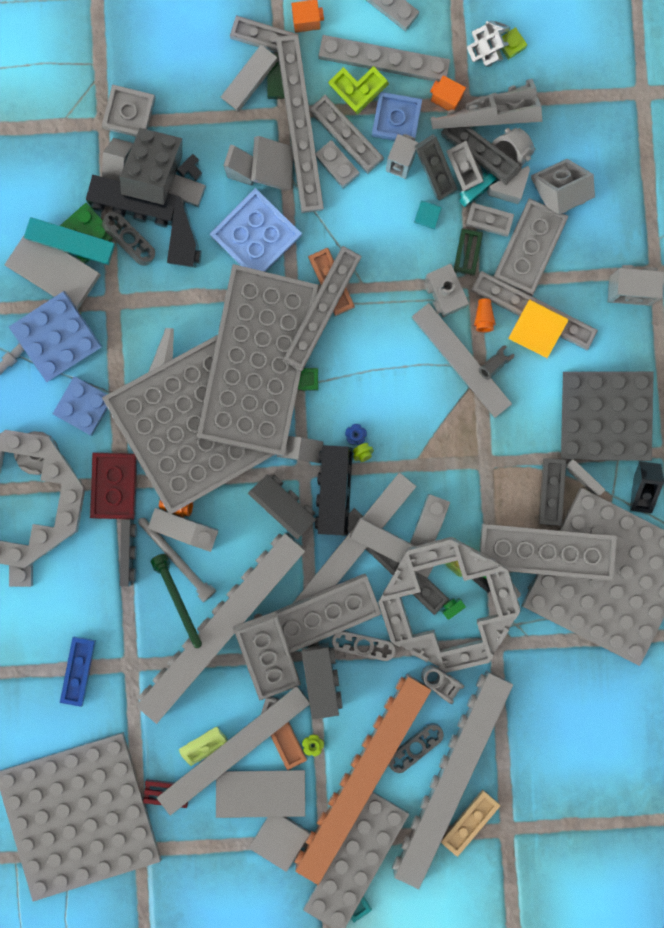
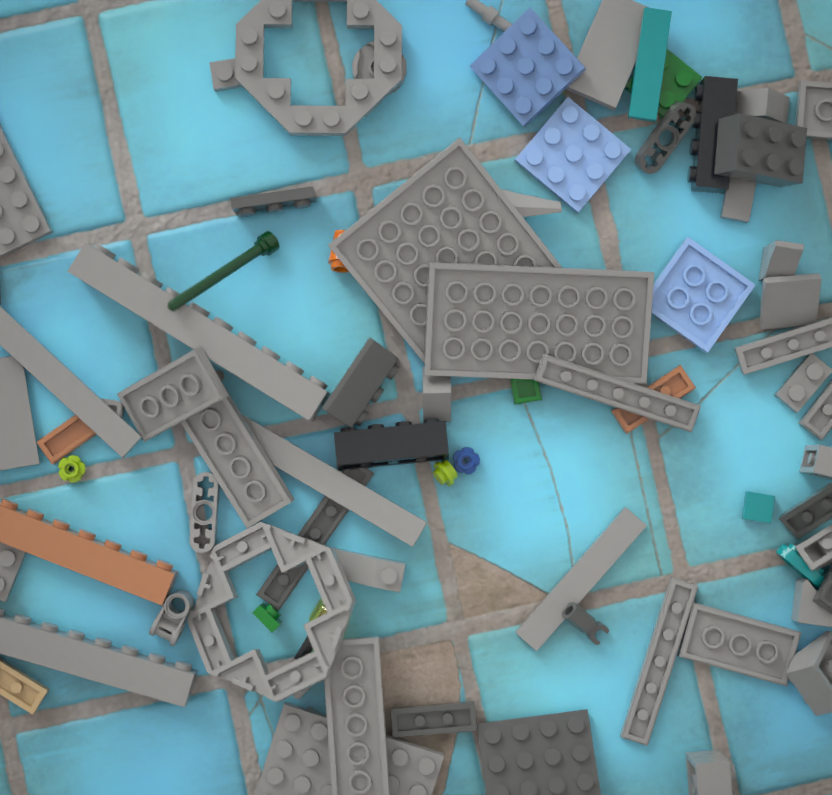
camera: 80 degrees right, 0 degrees up
(77, 671) = (118, 164): blue plate -> none
(81, 406) = (446, 114): medium blue plate -> none
(113, 486) = (353, 170): dark red tile -> none
(130, 313) = (572, 155): none -> light blue plate
(183, 242) = (669, 206): black slope -> none
(183, 529) = (312, 265): light grey slope -> none
(189, 167) = (767, 199): black tile -> none
(203, 746) = (50, 333): yellowish green plate -> none
(204, 590) = (242, 303): light grey piece -> none
(321, 680) = (152, 467): dark grey brick -> none
(383, 542) = (336, 515): light grey tile -> none
(415, 757) = (76, 599): dark grey beam -> none
(446, 291) = (665, 545): light grey brick -> none
(464, 270) = (695, 564): dark green tile -> none
(484, 317) = (640, 599): orange cone -> none
(489, 219) = (765, 586): light grey plate -> none
(538, 328) = (637, 669): yellow tile -> none
(584, 477) = (457, 757): light grey tile -> none

